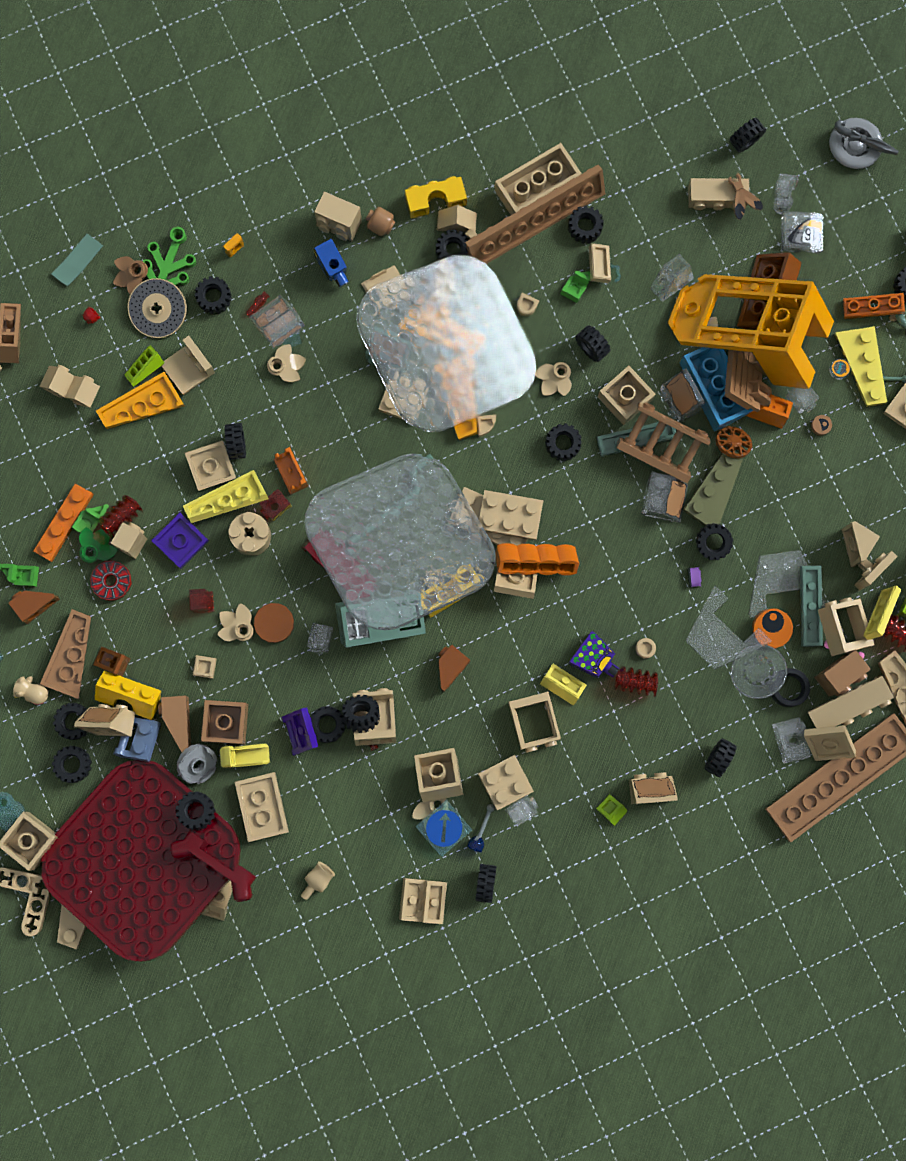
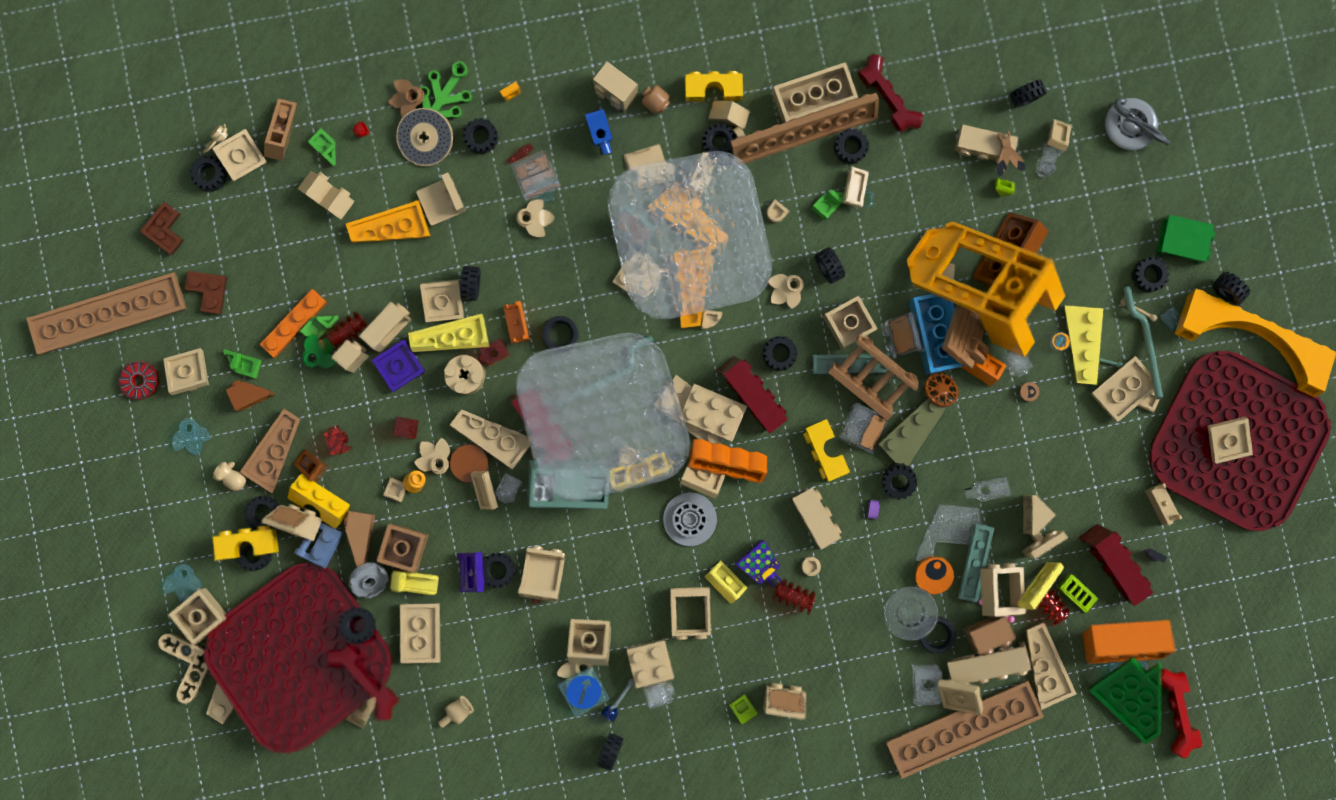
camera: 10 degrees right, 5 degrees up
(44, 759) = (228, 544): none -> yellow arch
(57, 339) = (324, 145): none -> bright green slope
(77, 260) = (359, 72): sand green sticker -> none
(107, 569) = (315, 385): tile -> none
(133, 630) = (337, 441): none -> clear red brick
(144, 366) = (403, 189): lime slope -> none
(159, 502) = (386, 326): none -> tan window
(221, 653) = (414, 481): none -> light orange hat
(294, 592) = (500, 442): none -> tan wing
(295, 645) = (484, 490): none -> tan tile
(335, 458) = (555, 320): none -> black tyre
(361, 722) = (530, 559): black tyre -> none
(423, 901) = (549, 753): tan slope -> none
(451, 665) = (624, 542): dark orange slope -> none
(511, 628) = (690, 519): none -> light grey wheel
(546, 487) = (753, 394): none -> dark red wedge
(628, 186) = (870, 76): none -> dark red plate
(639, 597) = (816, 517): none -> tan brick
(641, 542) = (817, 436): none -> yellow arch
(672, 277) = (921, 217): clear slope -> none
(715, 640) = (878, 575): clear wing -> none
(720, 757) = (855, 686): black tyre -> none
(747, 231) = (1004, 187): none -> lime slope
(788, 168) = (1059, 135): none -> tan tile
(802, 232) = (1057, 200): clear slope -> none
(814, 524) = (997, 489): none -> clear torso
(886, 305) = (1120, 290): orange tile -> none

